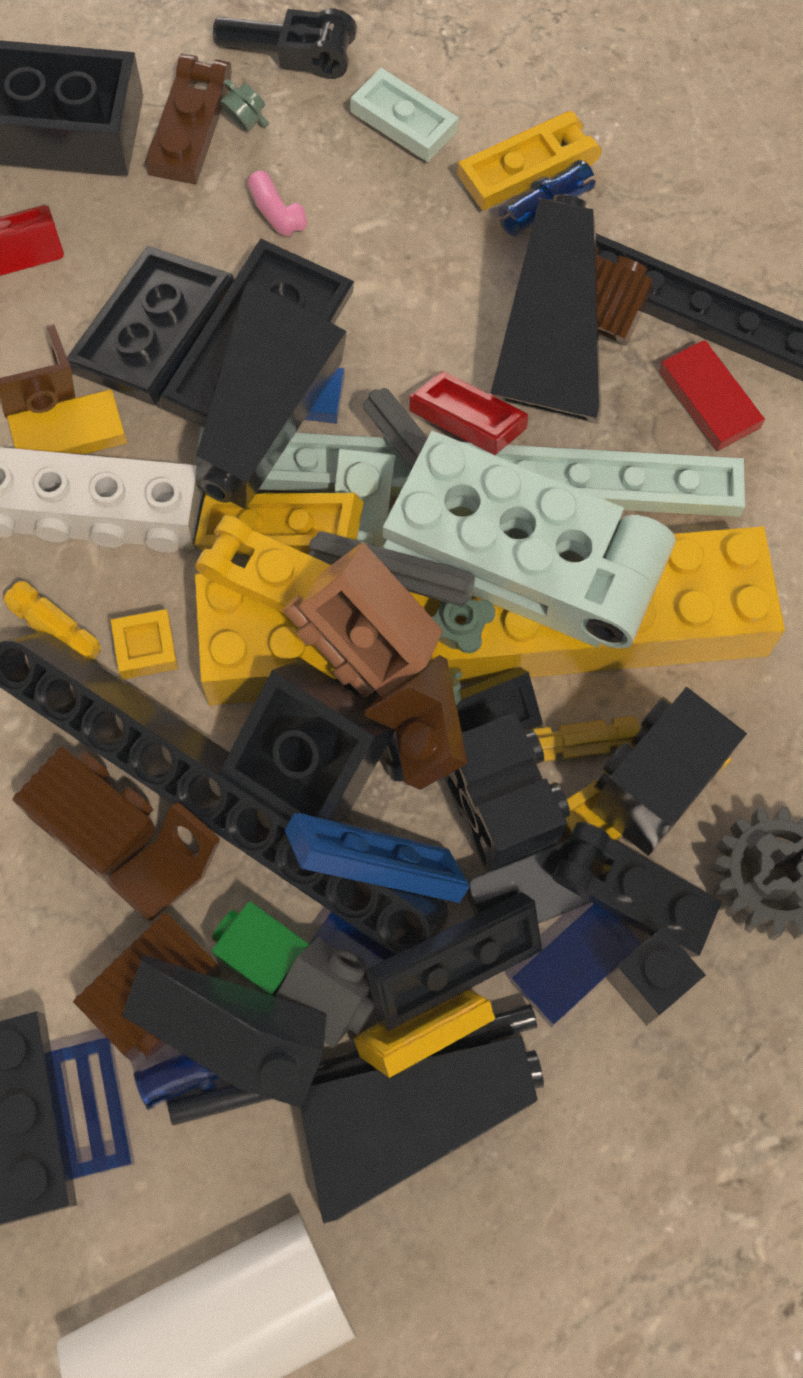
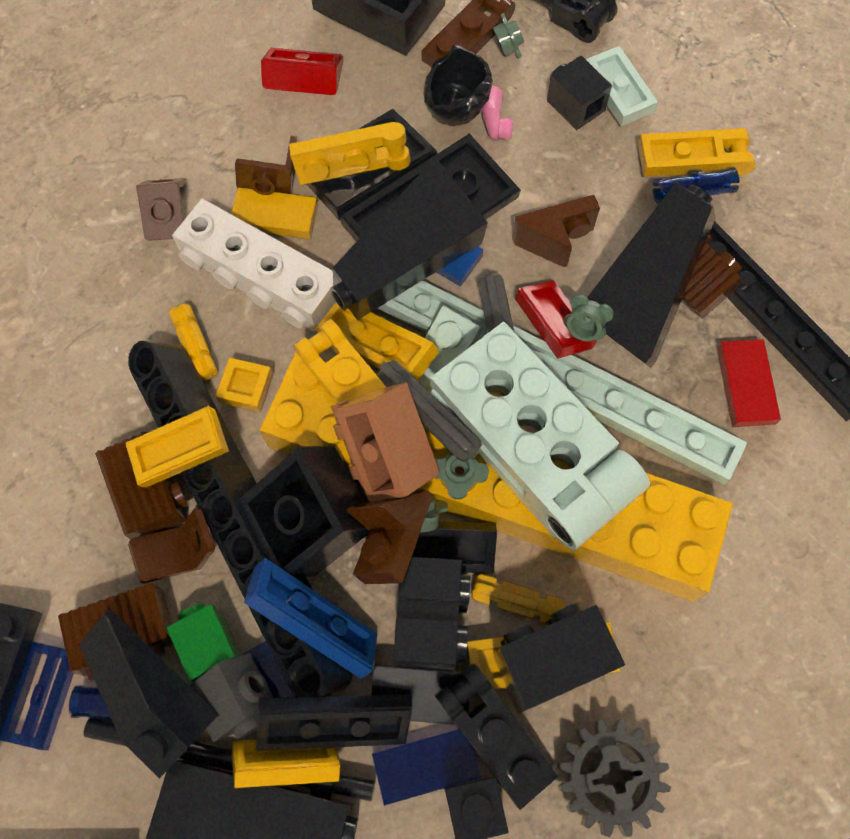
camera: 30 degrees right, 0 degrees up
(115, 743) = (176, 447): none -> yellow tile
(134, 317) = (350, 153): none -> yellow plate
(218, 188) = (457, 86): none -> black hair
(360, 140) = (578, 92): none -> black brick
(412, 314) = (548, 229): none -> reddish brown slope
(512, 406) = (587, 328): none -> sand green plate

